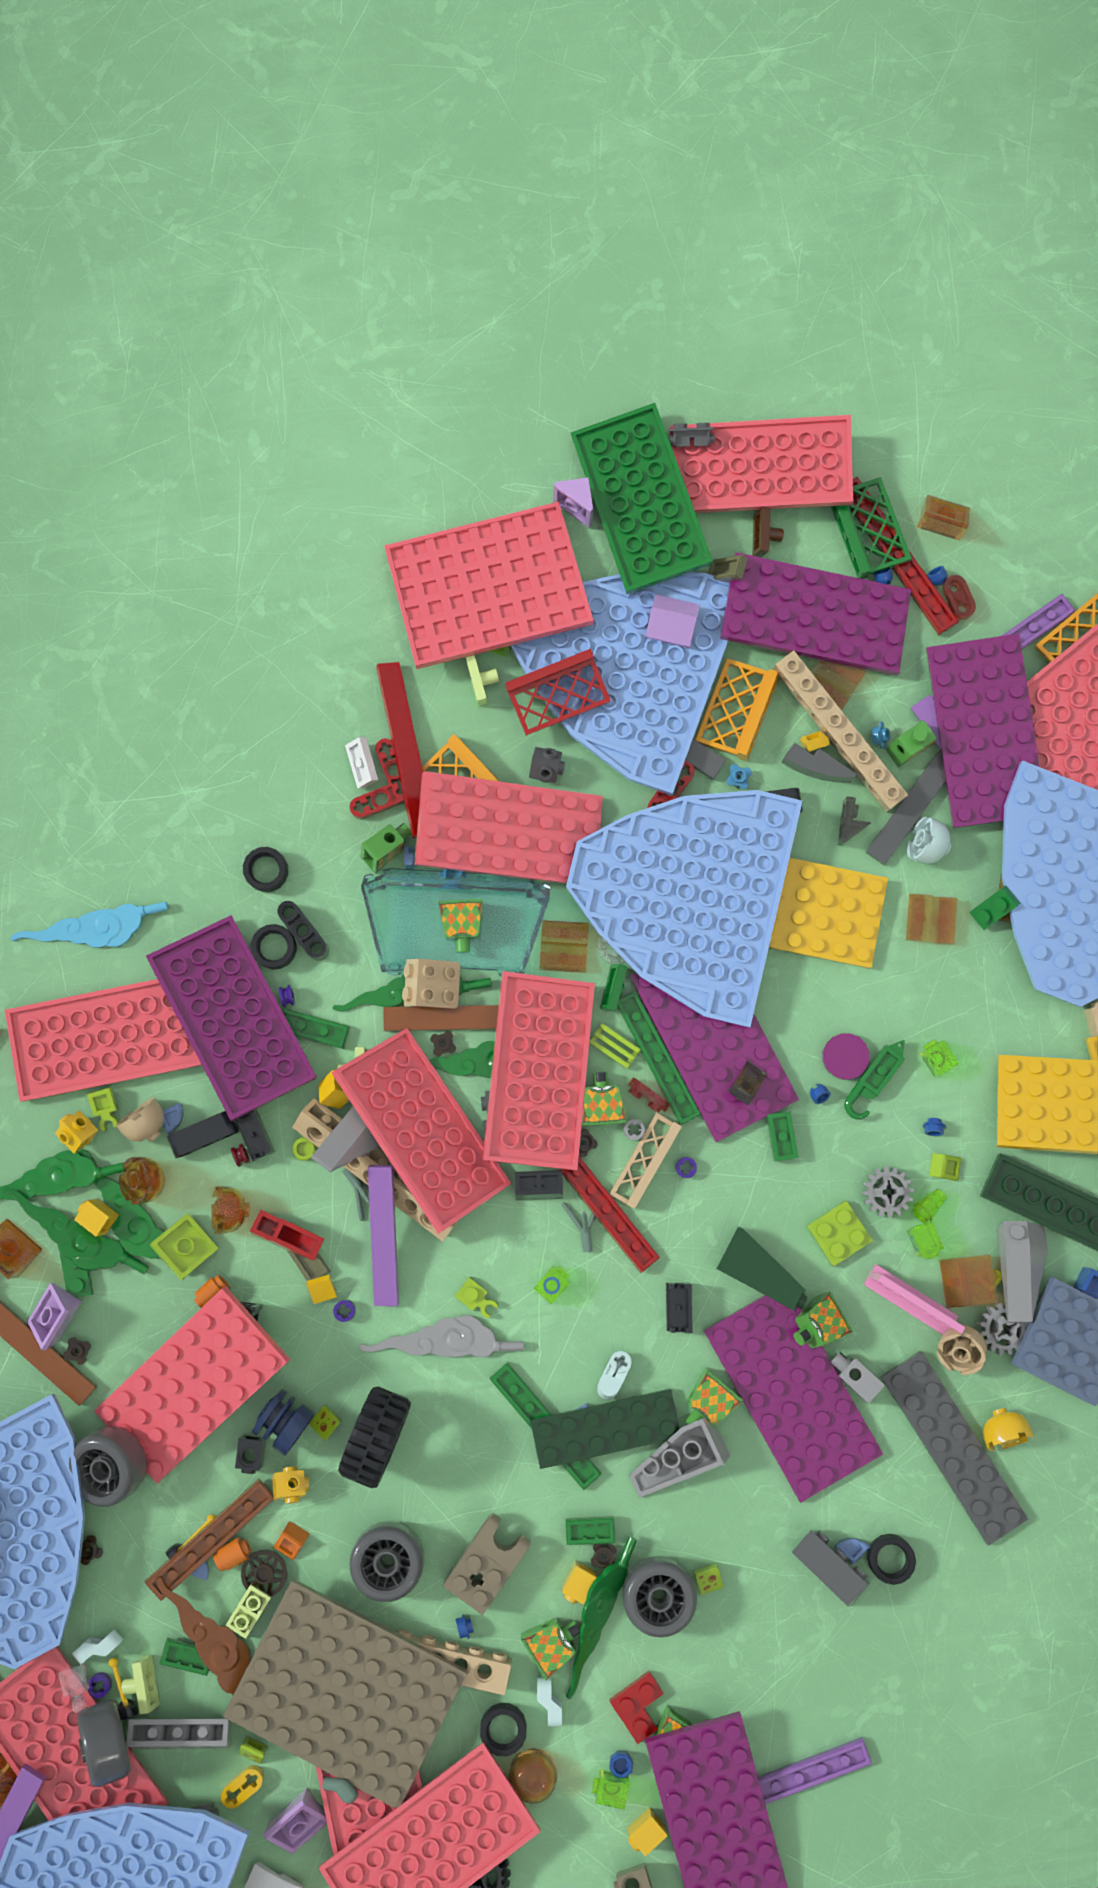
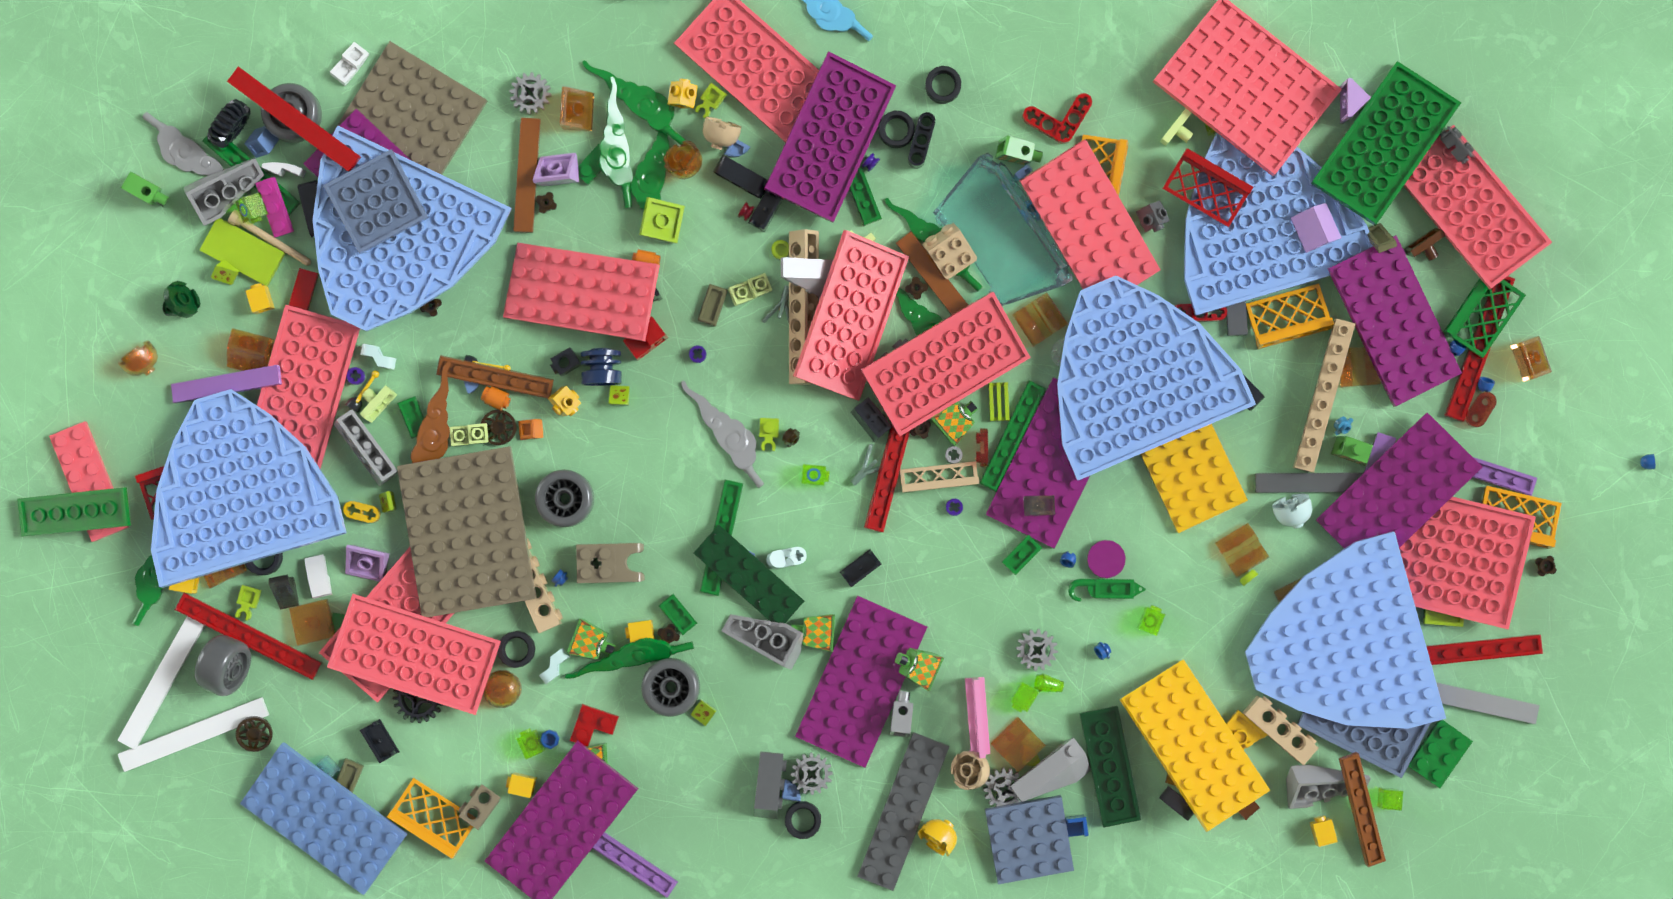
camera: 60 degrees right, 5 degrees up
(74, 1683) = (347, 358): clear plate -> none
(96, 1217) = (638, 149): yellow brick -> none
(103, 1743) = (329, 403): dark grey wheel -> none
(109, 1465) = (494, 278): dark grey wheel -> none
(228, 1209) = (706, 230): clear orange cylinder -> none
(286, 1235) = (718, 280): red slope -> none
(293, 1344) = (654, 338): none -> red brick
(320, 1209) = (750, 289): none -> yellowish green slope
(321, 1289) = (700, 329): yellow tile -> none
(331, 1093) = (830, 239): yellow brick -> none
(342, 1787) = (409, 572): sand green arm -> none
(361, 762) = (1062, 93): white plate -> none
(374, 1437) = (636, 431): black tyre -> none
(383, 1235) = (764, 342): medium lavender tile -> none
(402, 738) = (1099, 107): red tile -> none
(461, 921) = (1005, 239): torso -> none
(497, 1279) = (791, 437): none -> dark brown plate
(614, 987) = (1037, 372): green plate -> none
(735, 770) = (1247, 352): dark azure plate -> none
(756, 1268) = (923, 600): dark green slope -> none
(814, 741) = (1305, 384): yellow tile -> none
(818, 765) = (1290, 399): dark grey slope -> none
(839, 1233) = (986, 638): lime plate -> none
(848, 827) = (1263, 450): clear smoke slope -> none
(861, 1512) = (818, 779): none -> light grey gear
(945, 1166) = (1082, 677): lime slope -> none
(963, 932) = (1248, 577): none -> lime tile
(994, 907) = (1280, 585): green plate -> none

